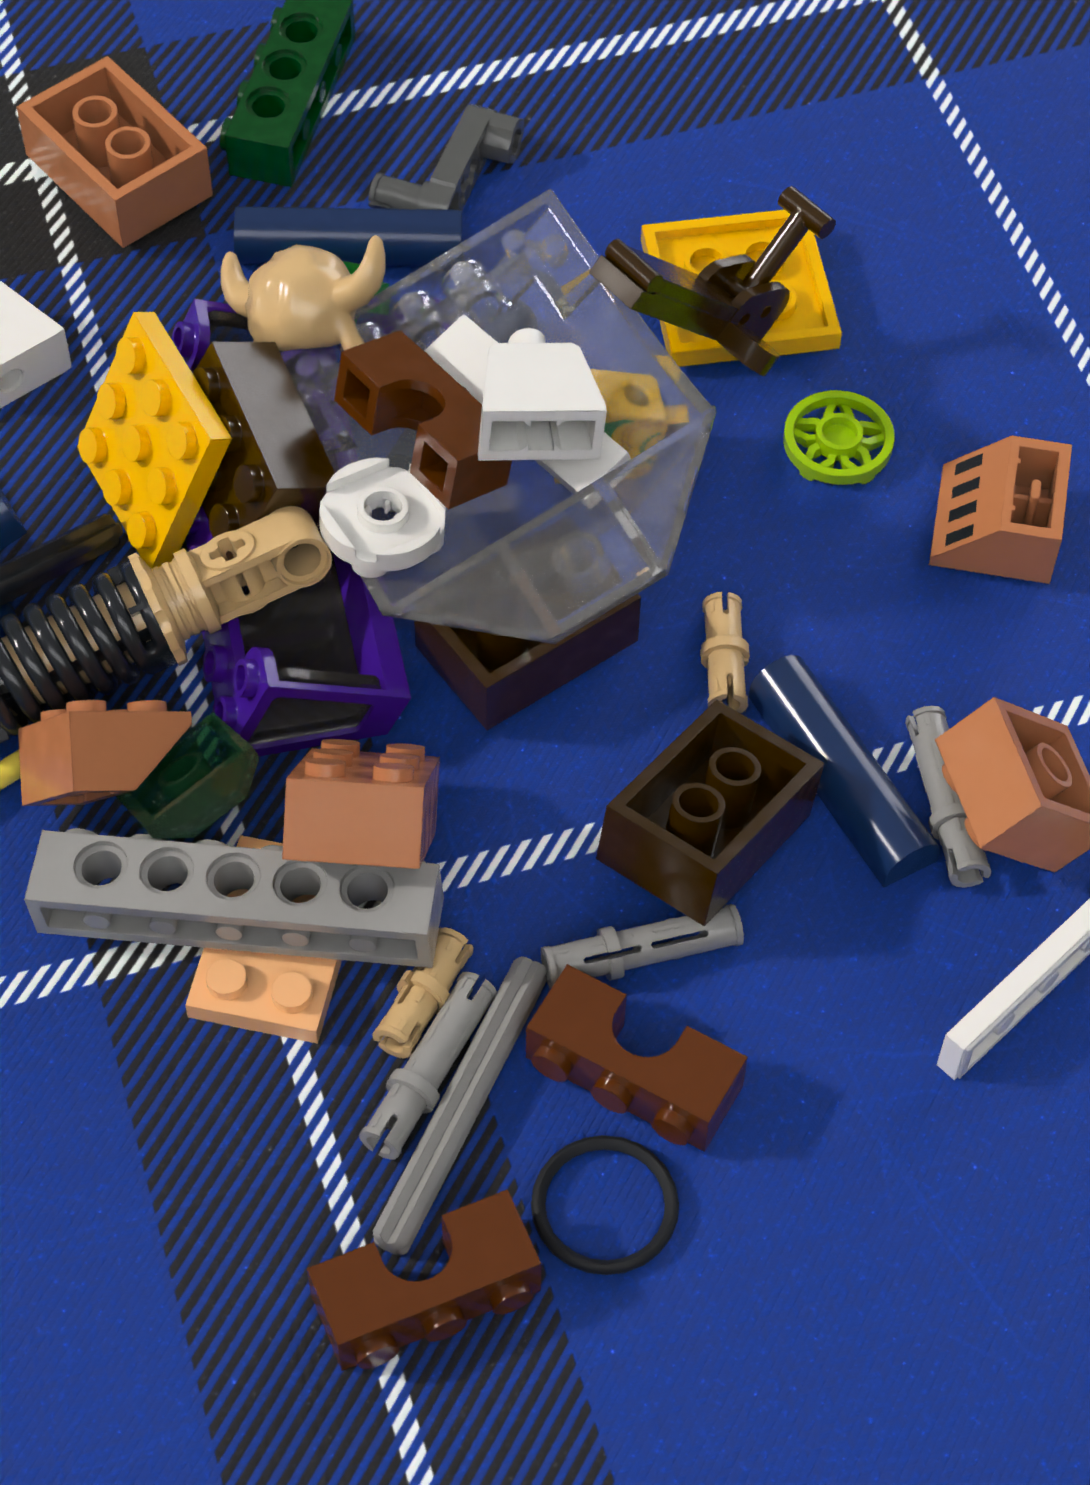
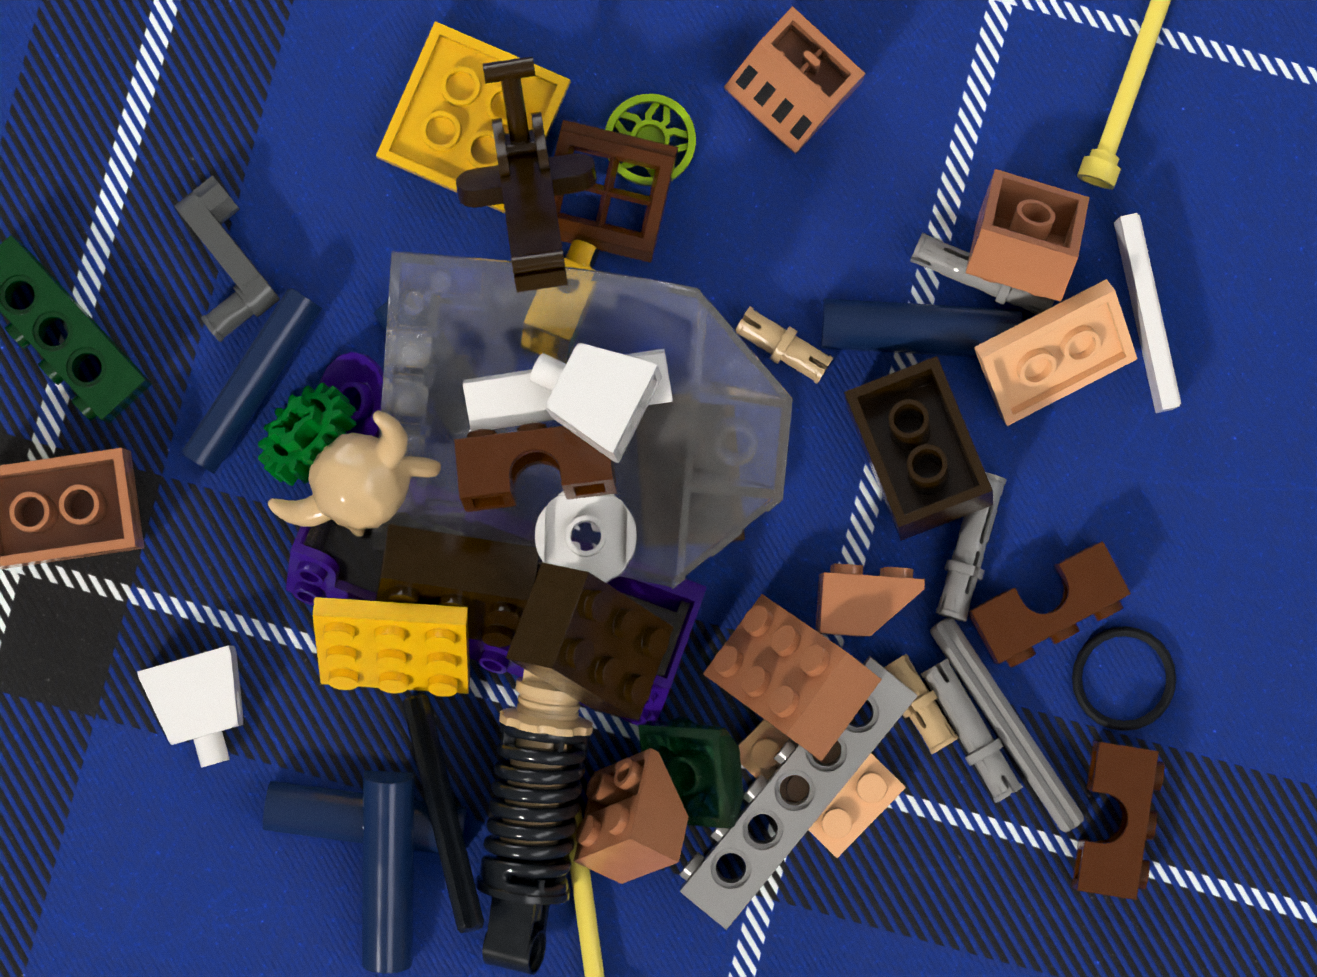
camera: 60 degrees left, 30 degrees up
(268, 551) = (590, 641): none -> dark brown brick
(499, 848) = (862, 603): none -> nougat slope
(807, 400) = (628, 150): none -> reddish brown piece
(922, 894) = (1056, 352): none -> light nougat plate

